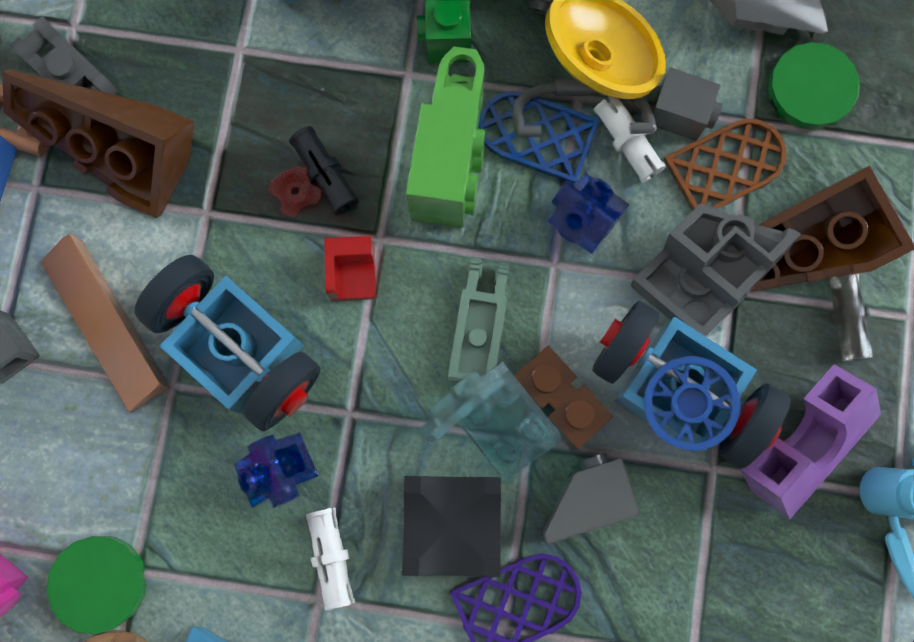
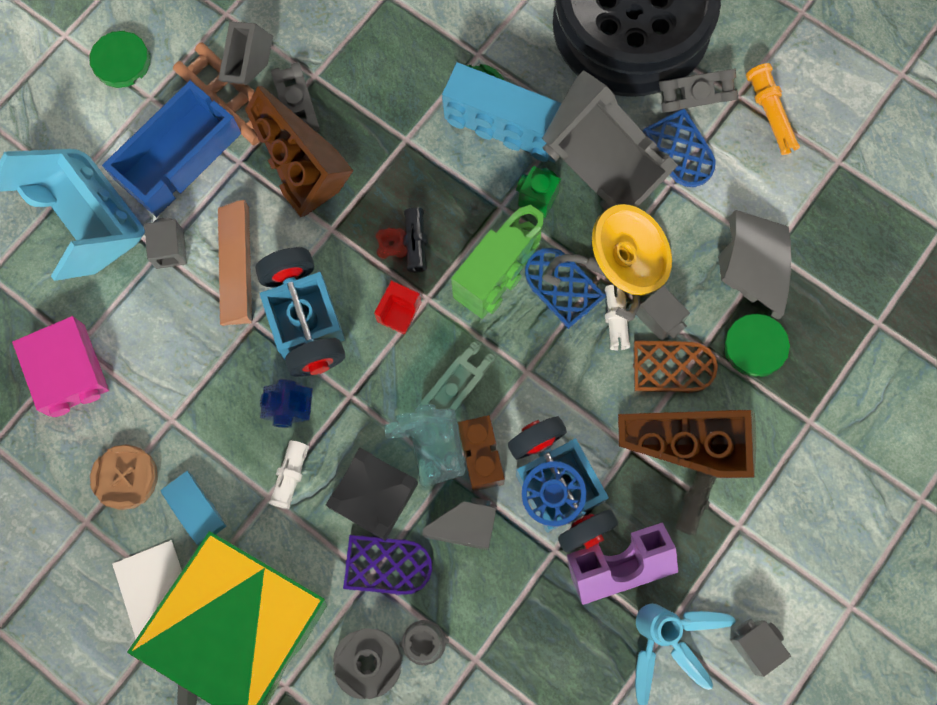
camera: 30 degrees right, 5 degrees down
(96, 584) = (146, 415): green tile -> none
(586, 211) = (562, 348): clear blue brick -> none
(710, 266) = (621, 423): dark grey slope -> none

